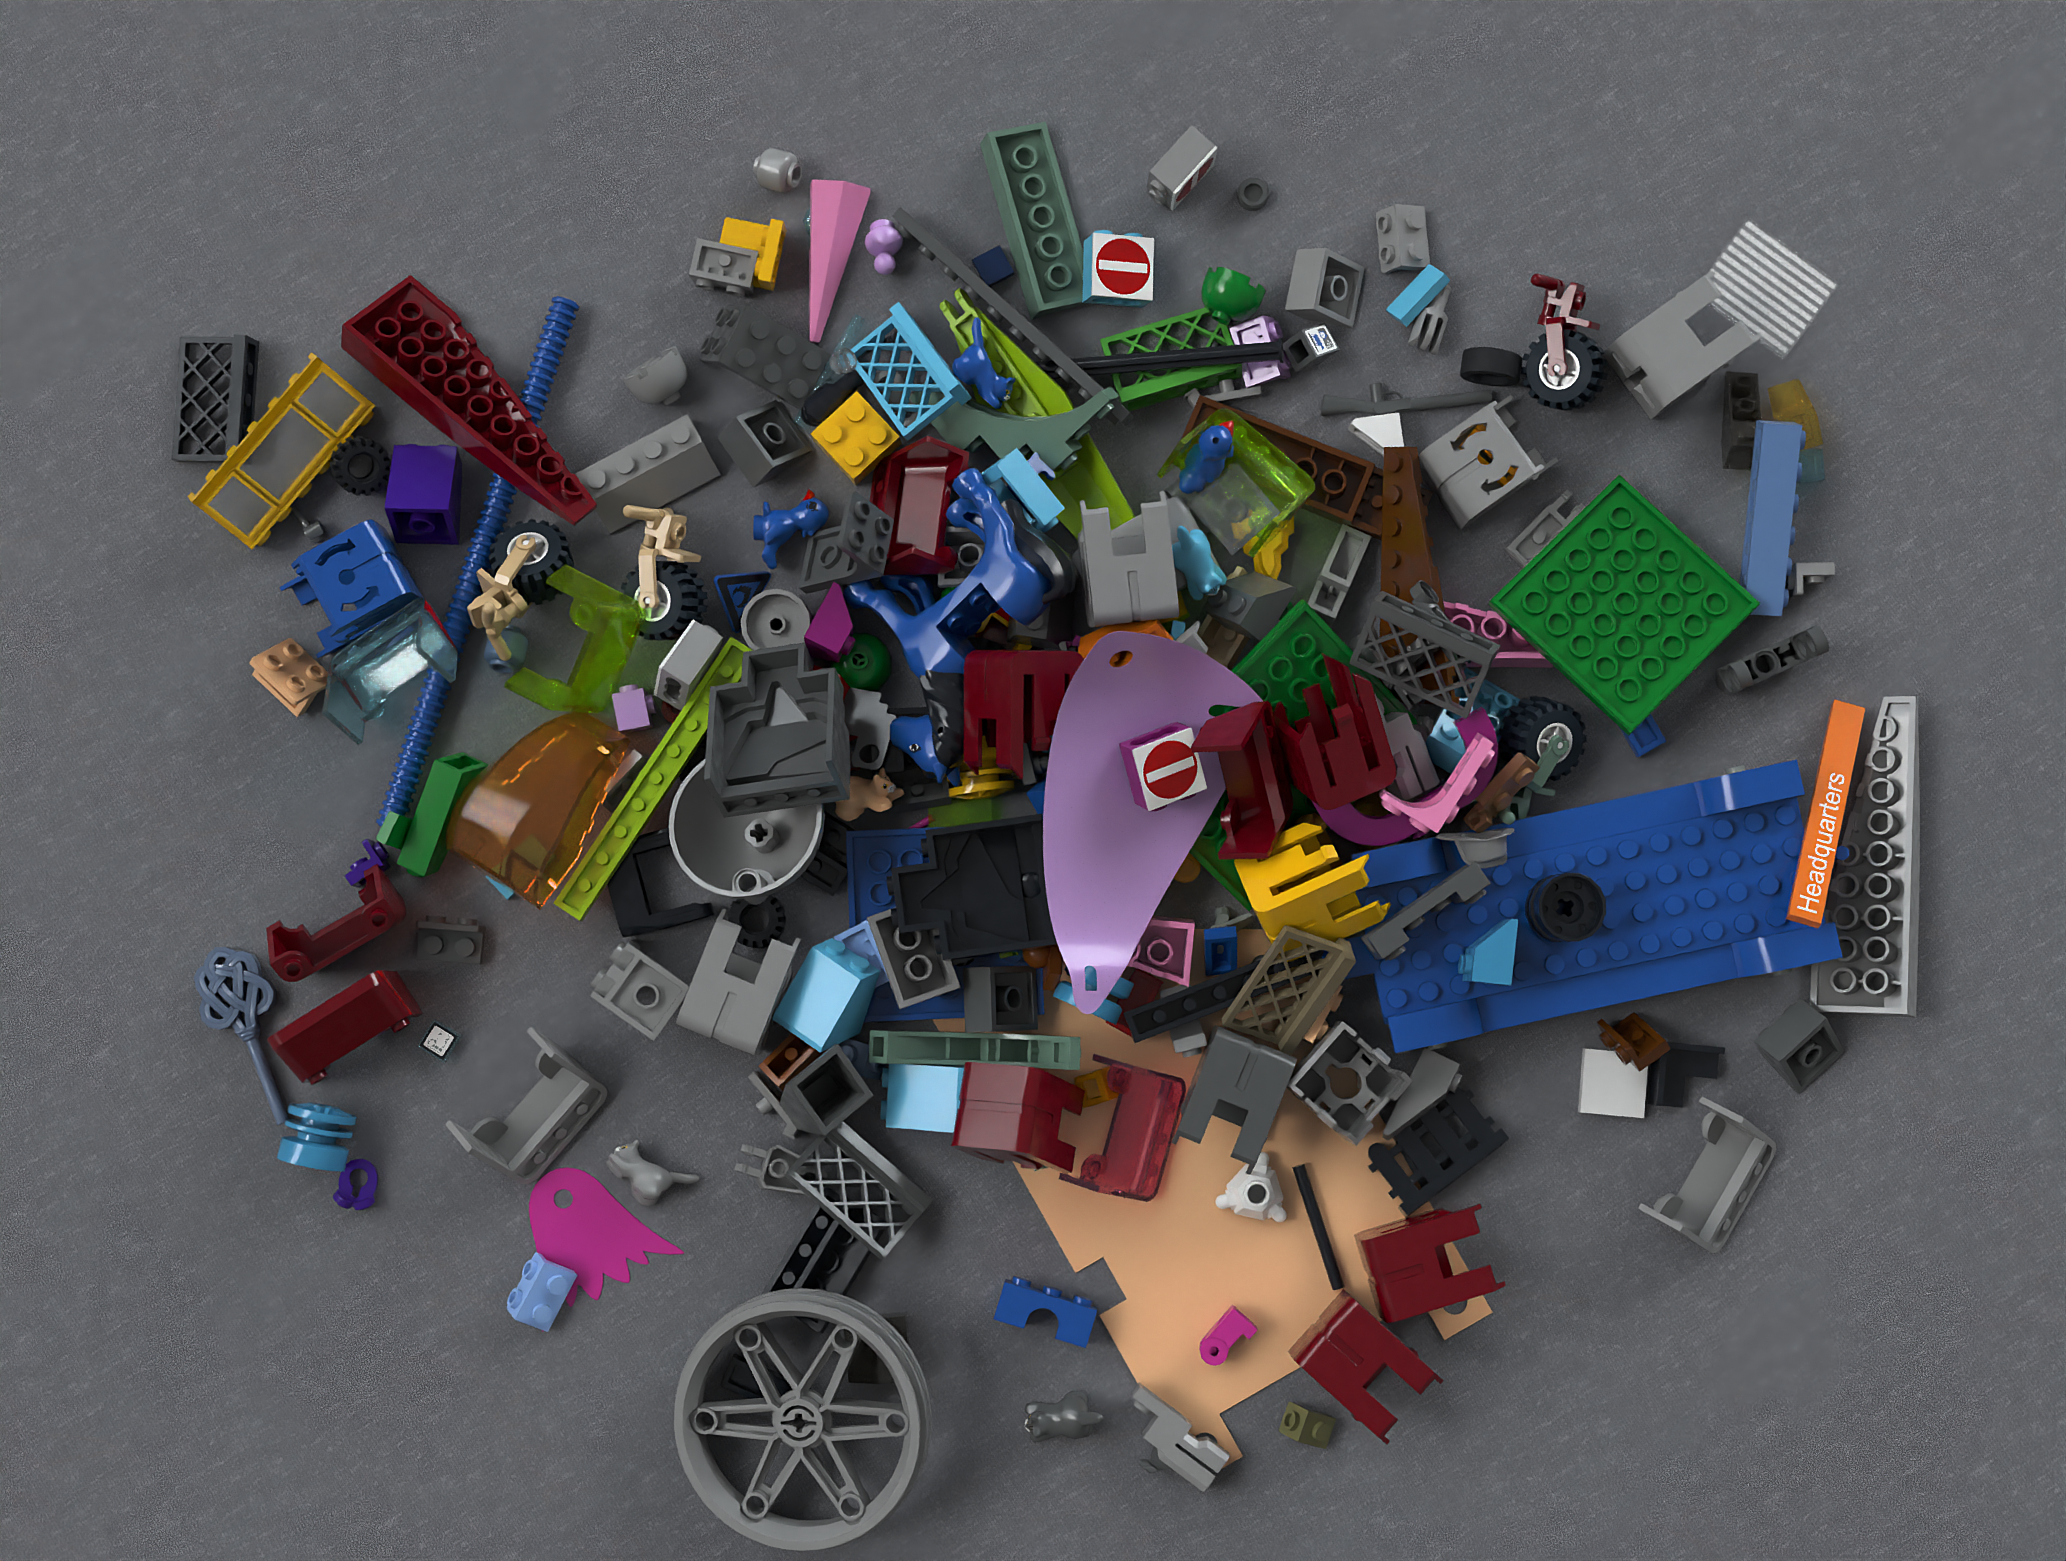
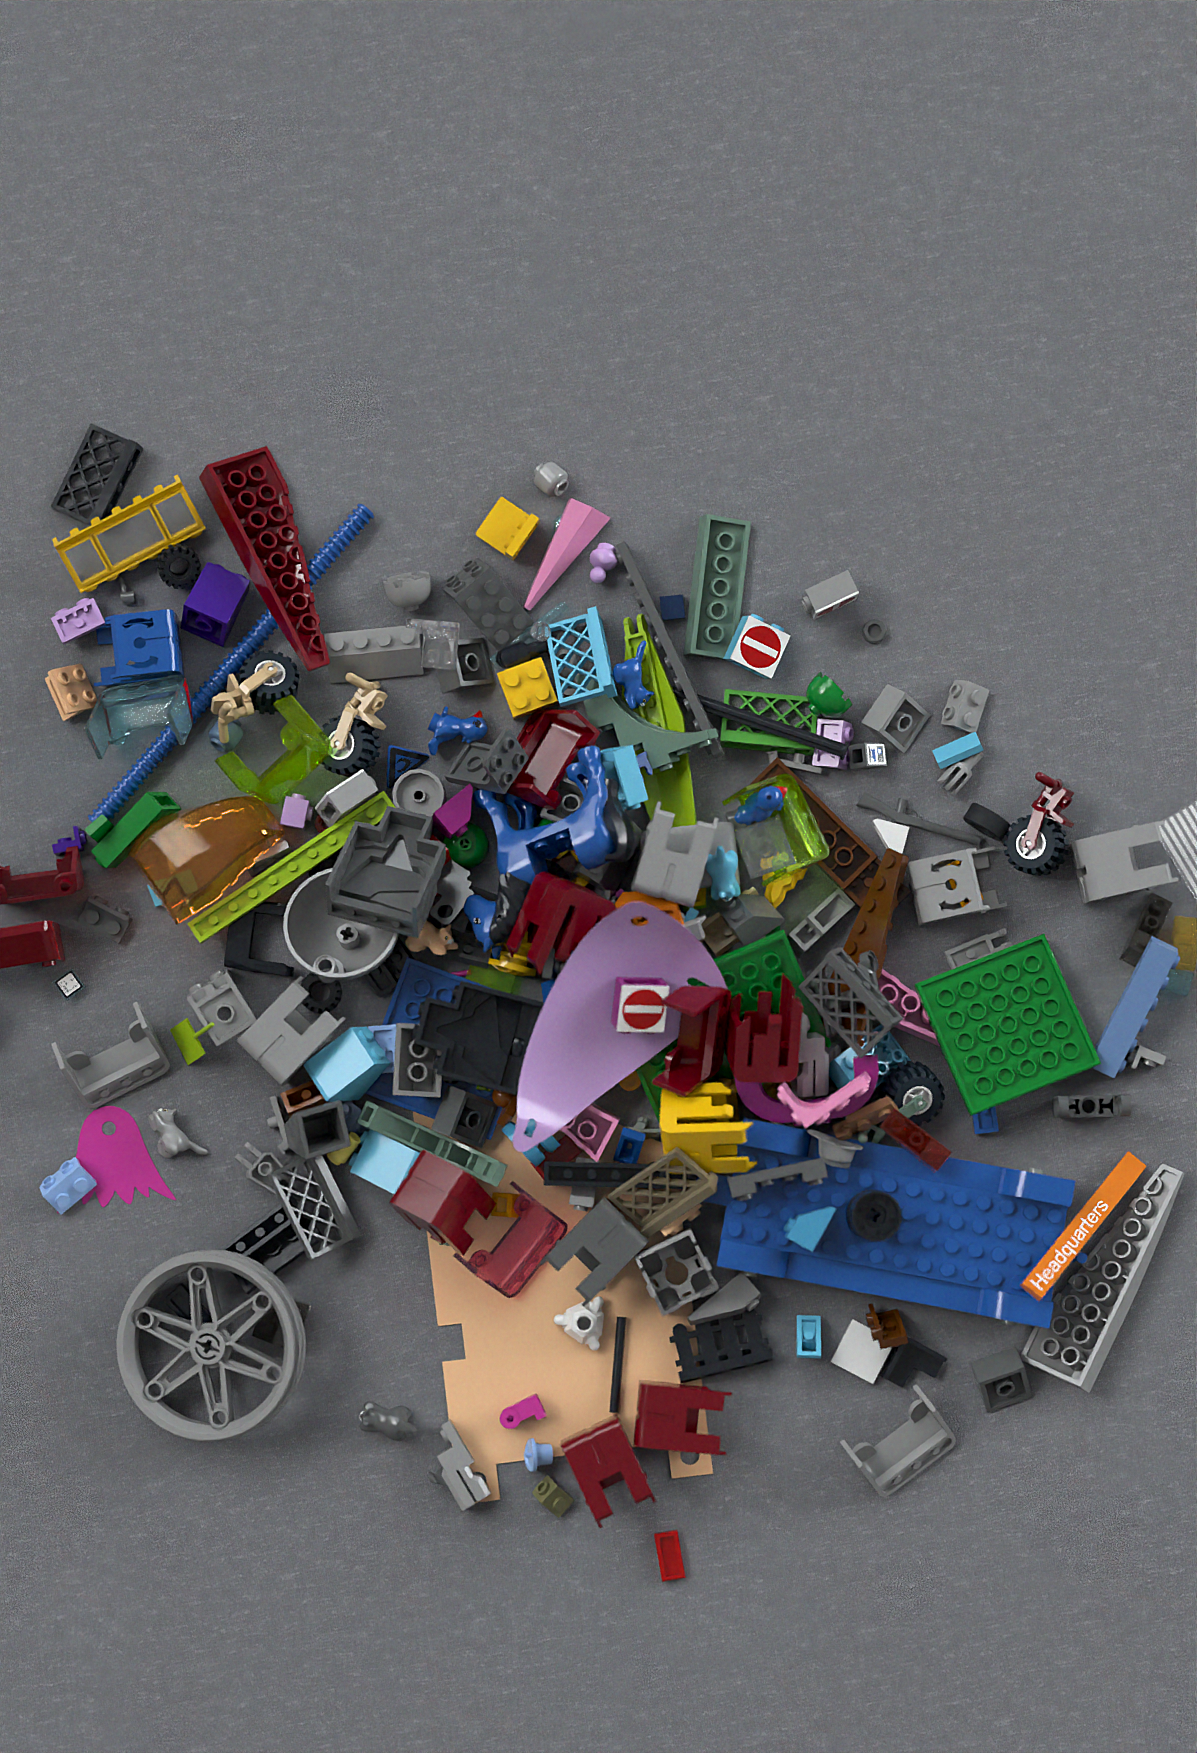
camera: 20 degrees right, 0 degrees up
(263, 584) = (78, 620): none -> lavender bracket
(616, 1047) = (188, 1040): none -> lime piece
(721, 423) = (439, 642): none -> clear bracket
(723, 267) = (485, 531): light grey bracket -> none
(868, 1111) = (342, 1155): none -> light yellow cone
(1073, 1316) = (423, 1356): blue arch -> none
(1266, 1382) = (537, 1454): none -> light blue piece
(1482, 1437) = (669, 1555): none -> red tile
(1541, 1093) = (808, 1336): none -> medium azure slope
(1577, 793) = (915, 1140): none -> clear red slope

